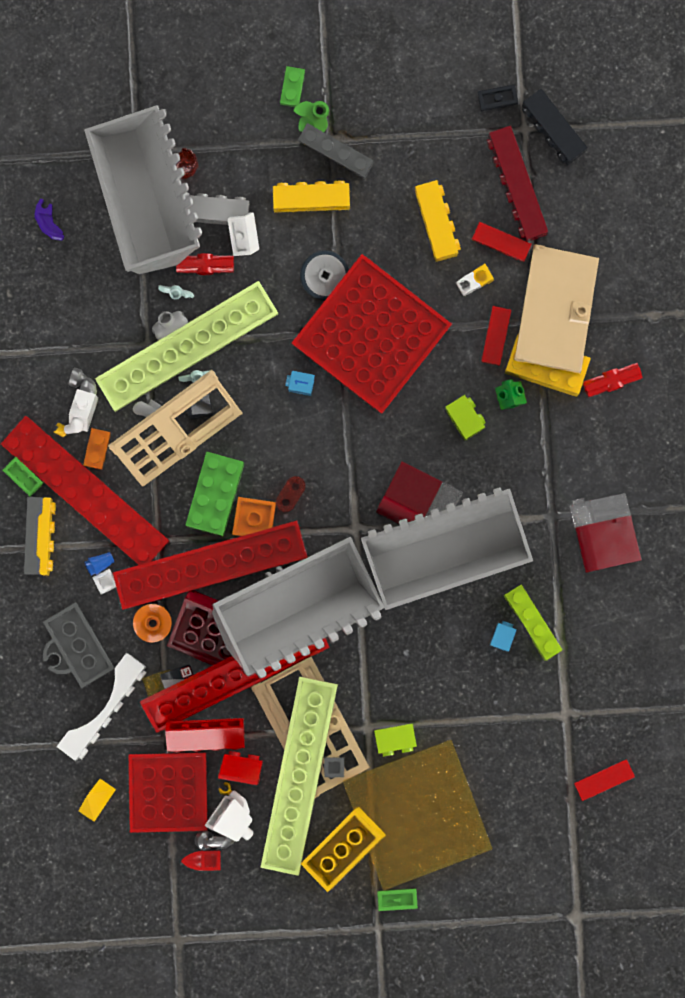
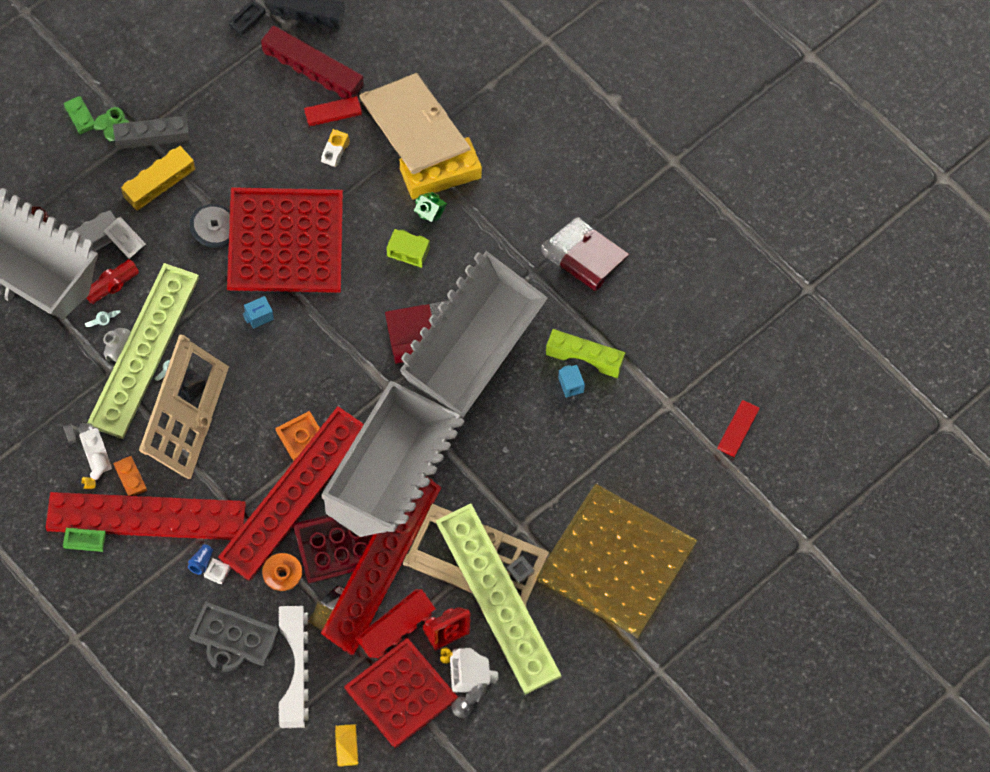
camera: 40 degrees left, 20 degrees down
(38, 536) = (133, 574): piece -> none
(144, 409) = (143, 418): light grey piece -> none
(203, 860) = (474, 723): red plate -> none
(215, 494) = (255, 439): bright green brick -> none
(290, 494) = (316, 399): clear red plate -> none
(343, 849) = (579, 624): yellow brick -> none
(395, 739) = (551, 515): lime brick -> none
(397, 899) = (655, 635): bright green plate -> none
(436, 220) = (270, 128): yellow brick -> none
(496, 335) = (383, 177): red tile -> none
(612, 380) = (499, 145): red piece -> none

